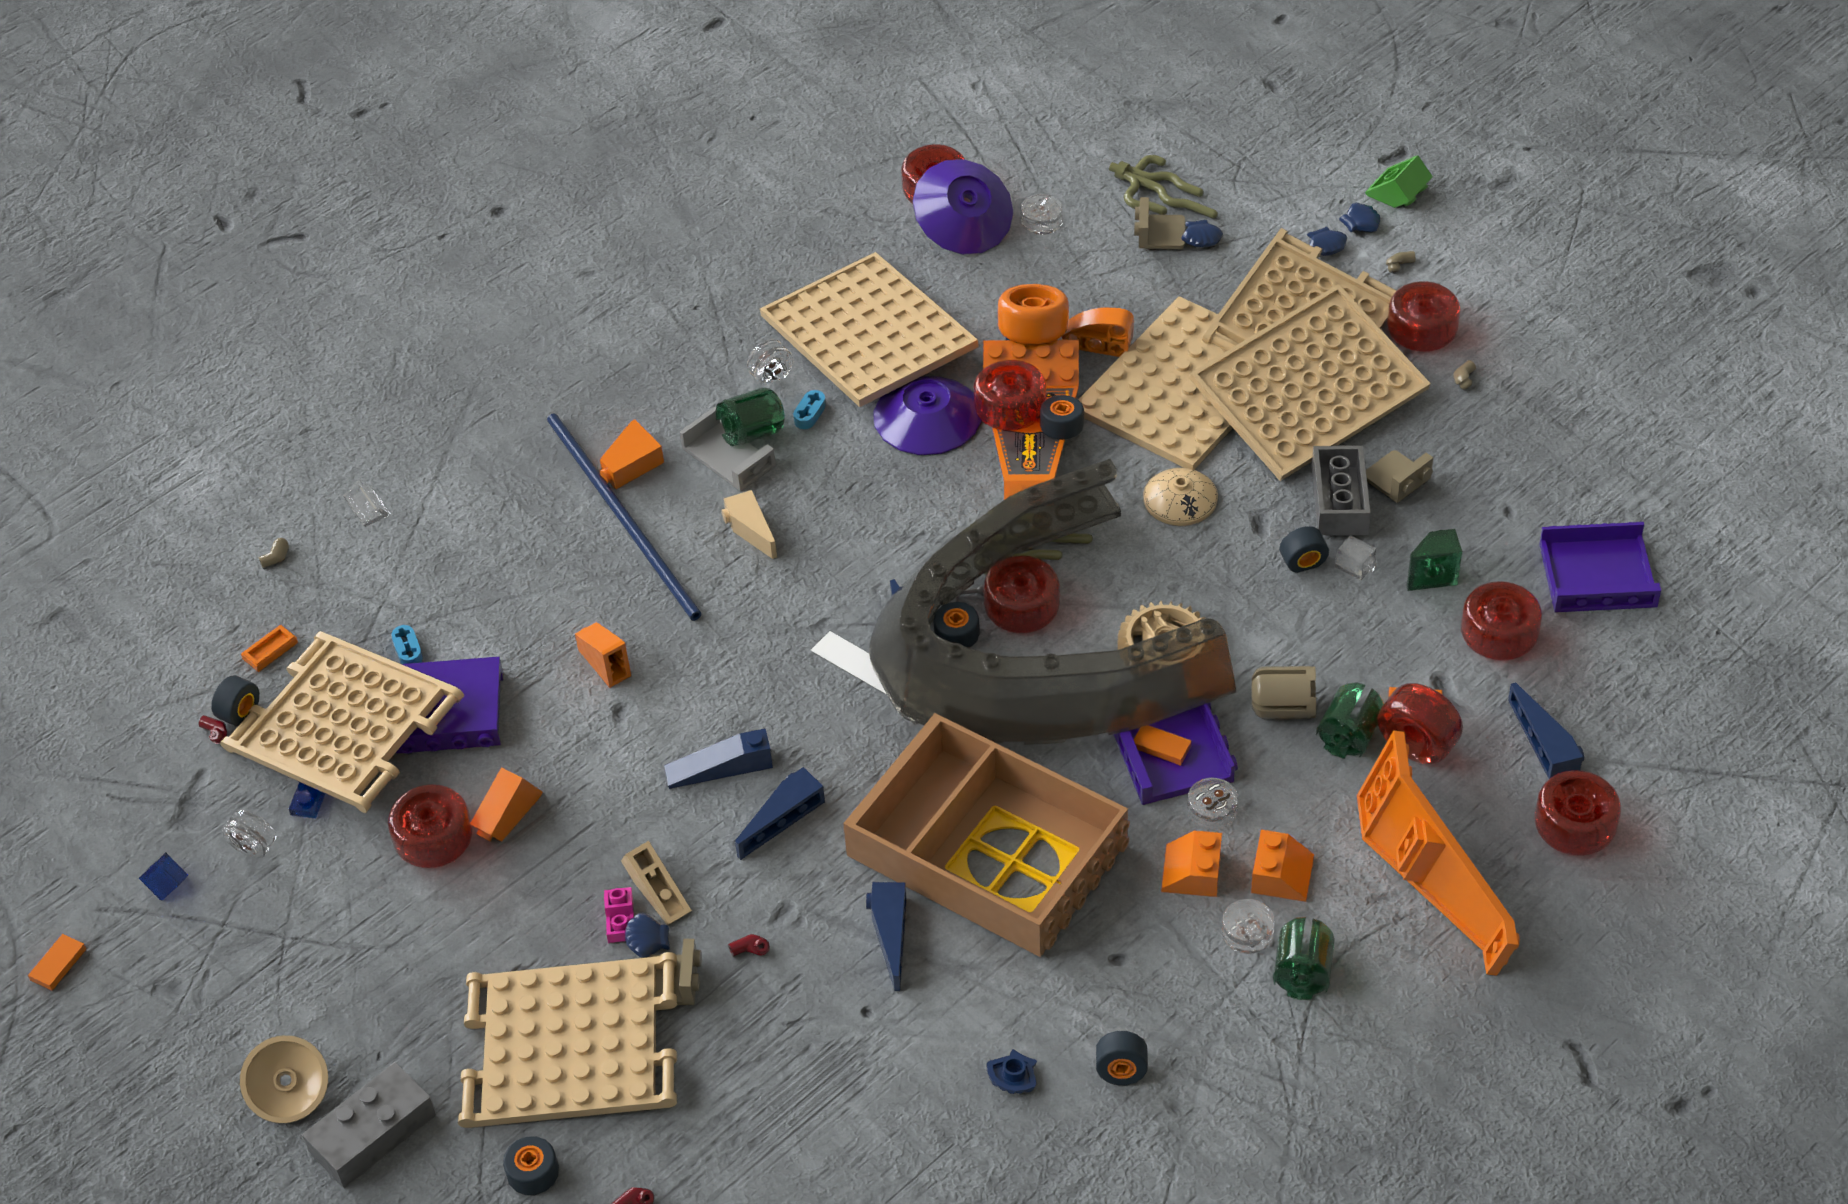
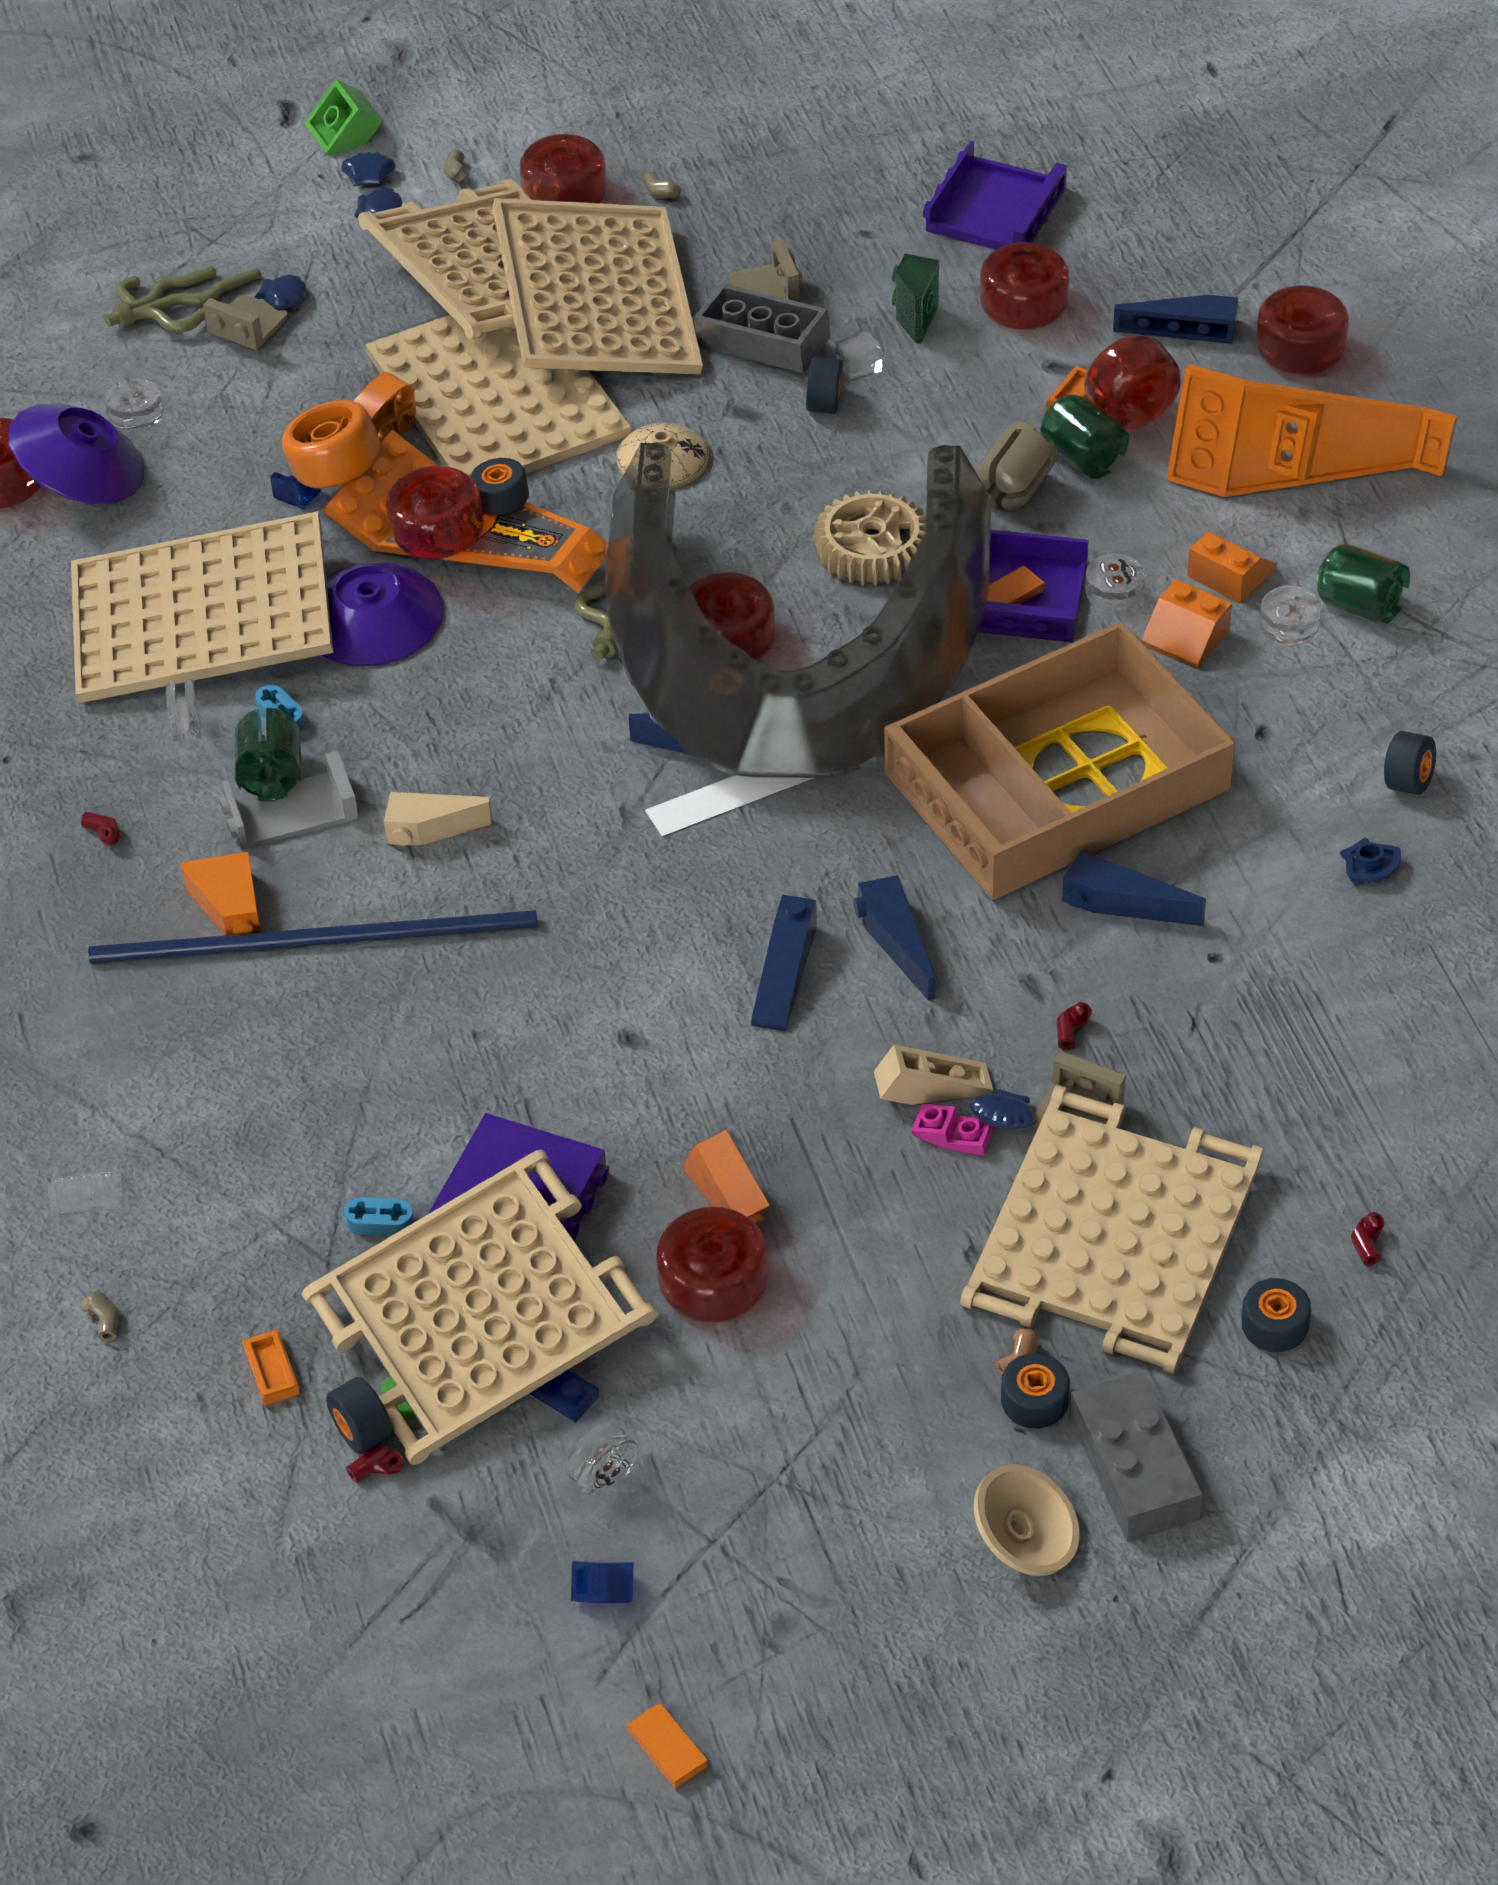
camera: 65 degrees left, 0 degrees up
(406, 1044) = (1035, 1390): none -> black wheel
(439, 1029) = (1025, 1343): none -> medium nougat arm
(604, 653) = (543, 1013): orange slope -> none
(661, 377) = (106, 826): none -> dark red arm

